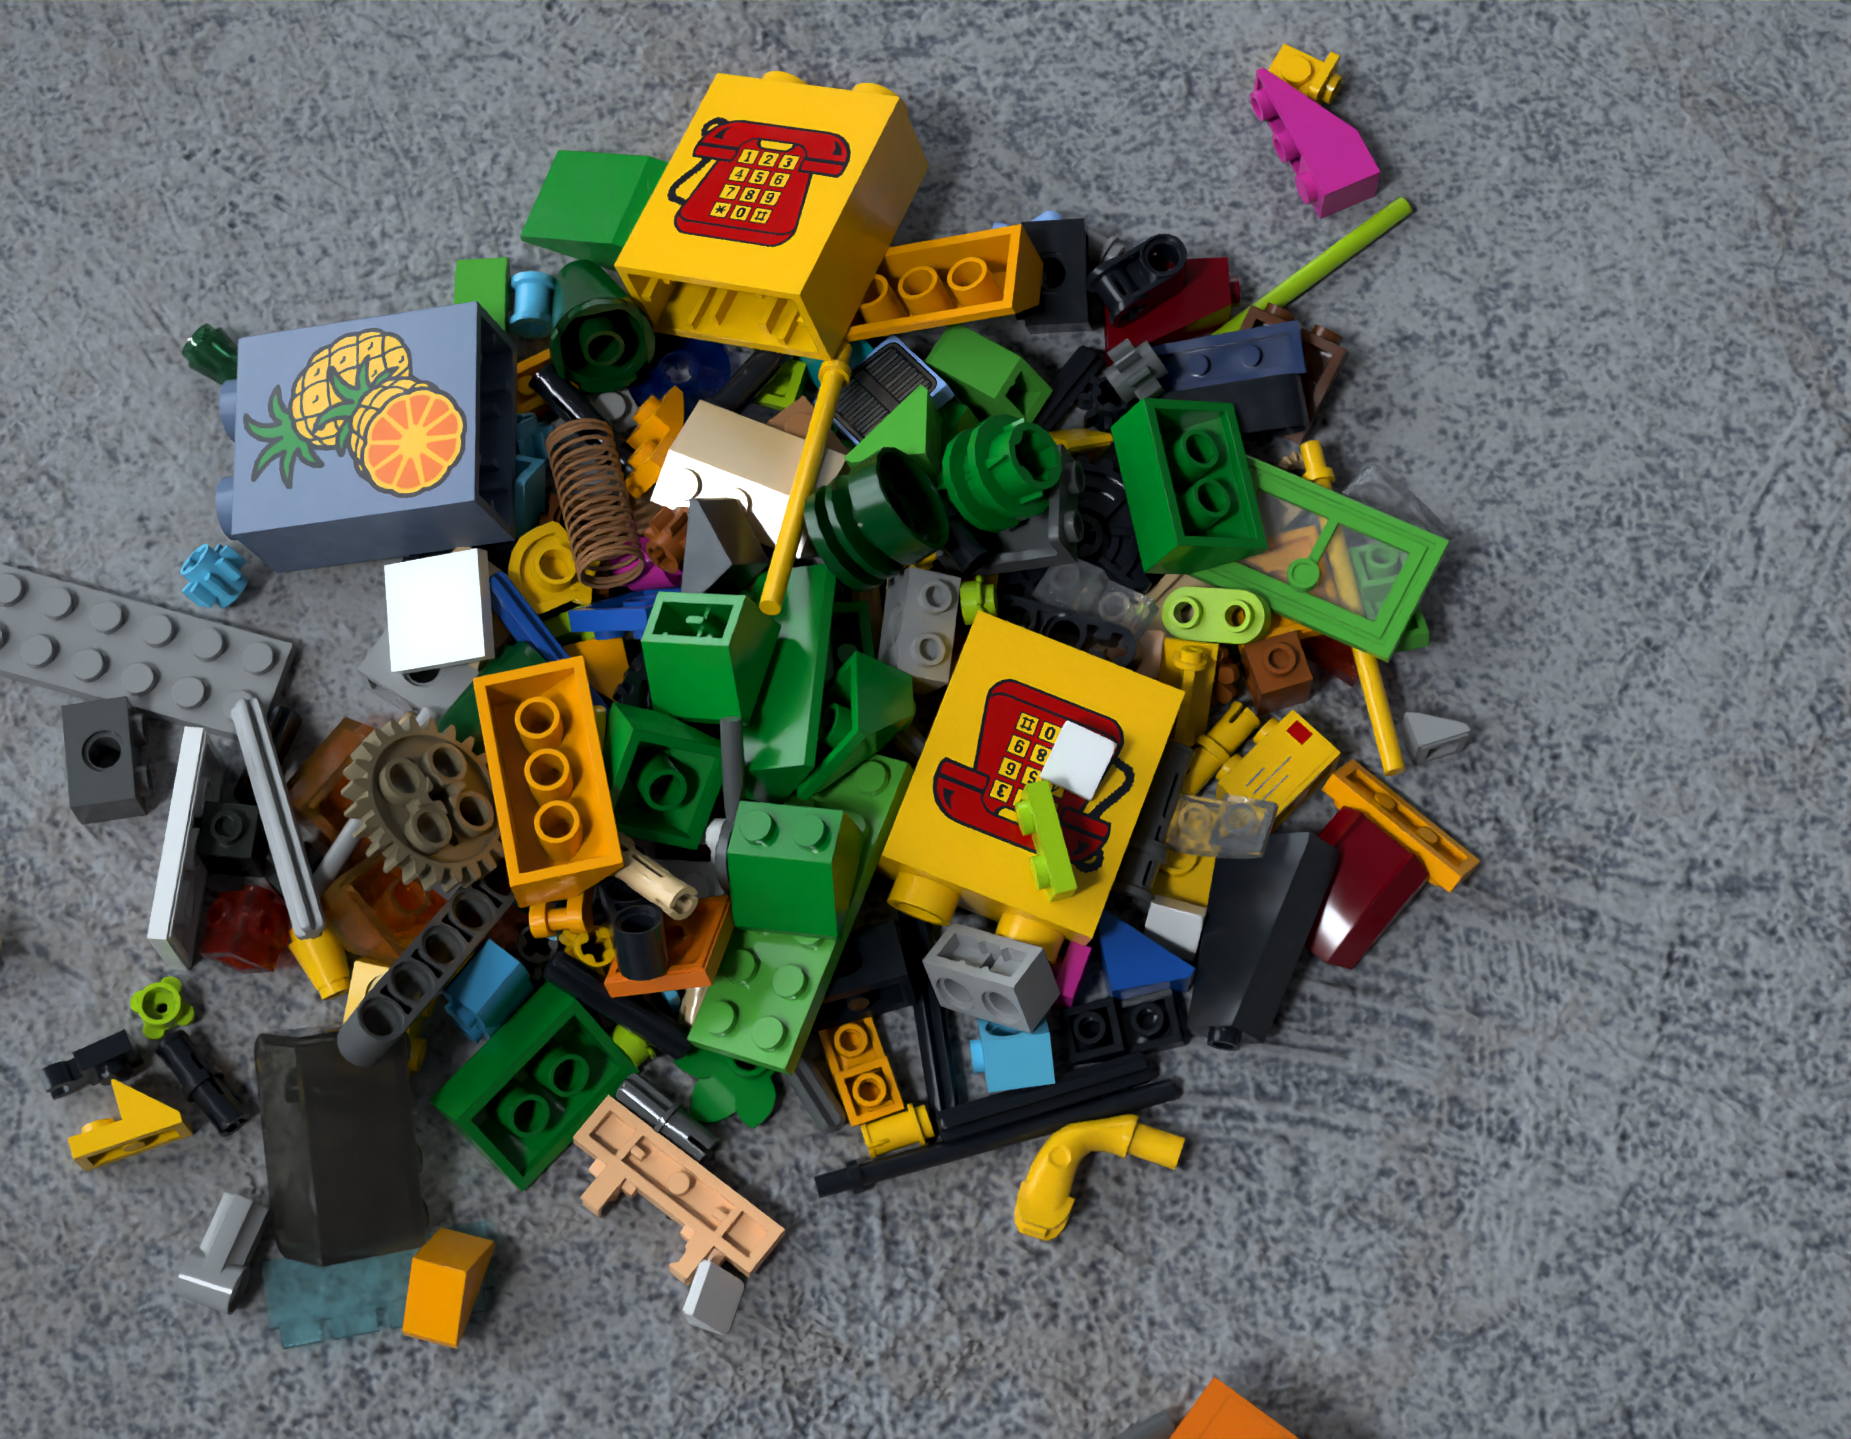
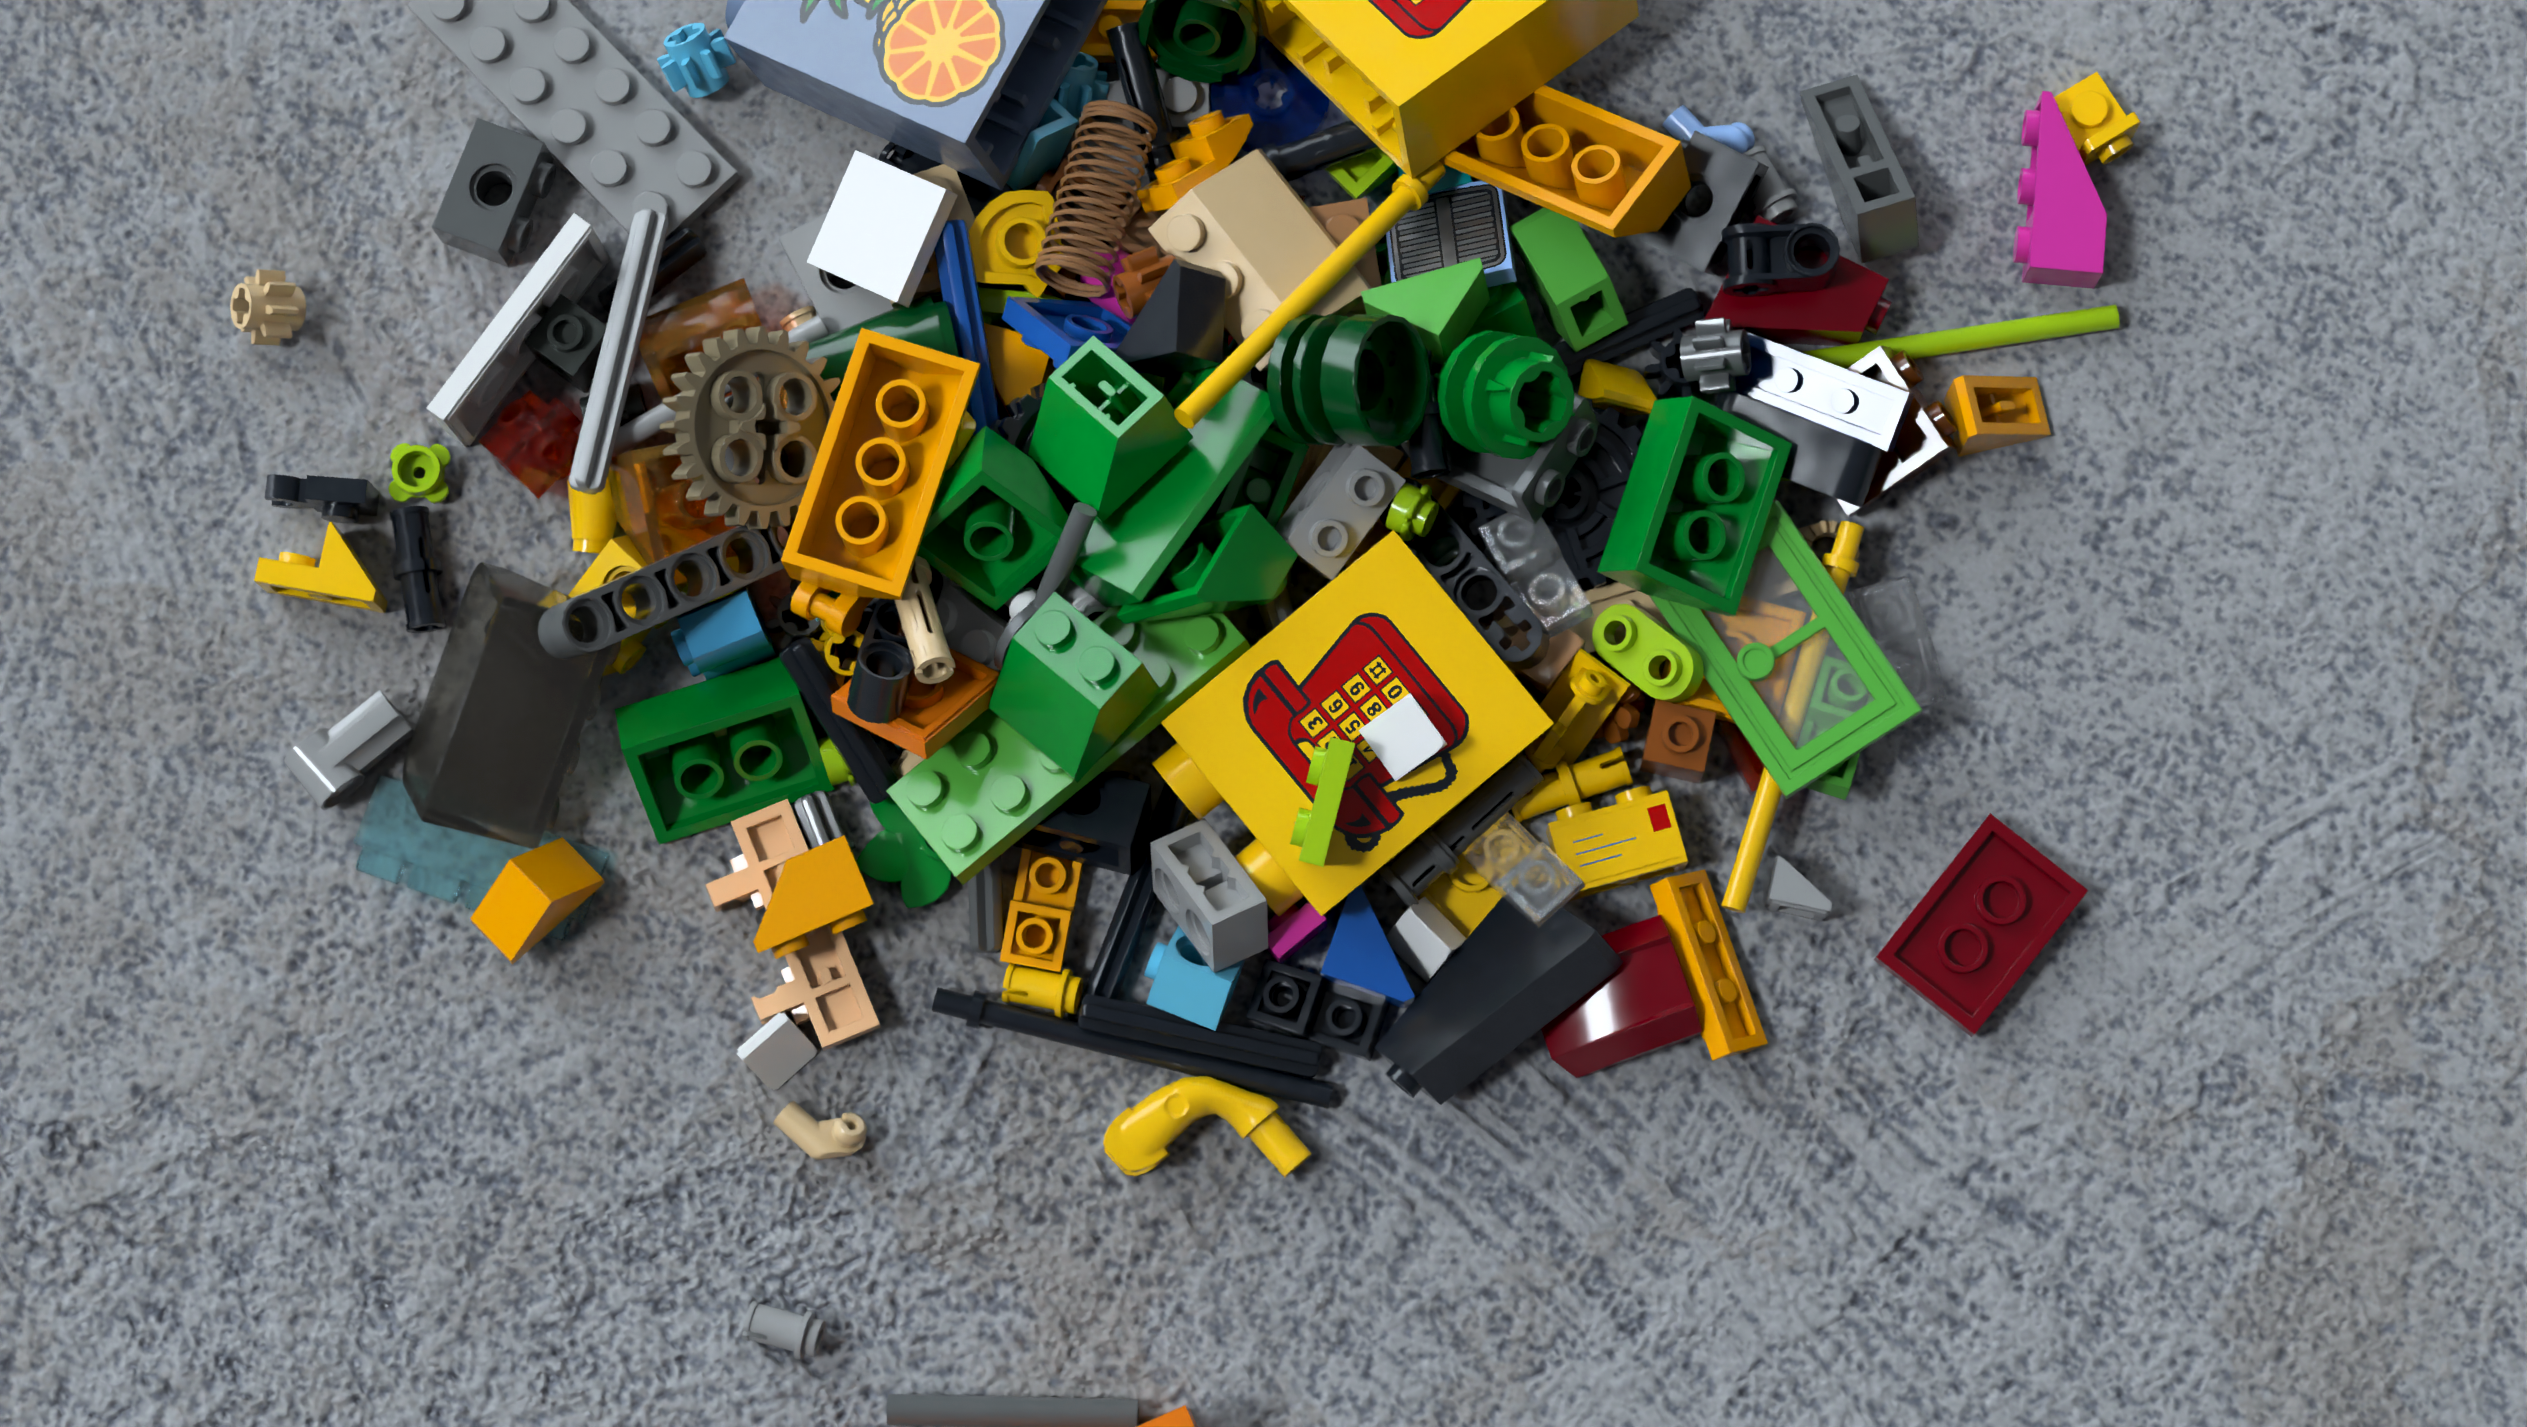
camera: 35 degrees right, 10 degrees up
(674, 1149) = (812, 892): none -> light orange slope
(791, 1346) = (823, 1138): none -> tan arm
(1157, 195) = (1861, 169): none -> dark grey slope
(1360, 314) = (1995, 412): none -> light orange slope
(1584, 685) = (1981, 925): none -> dark red plate

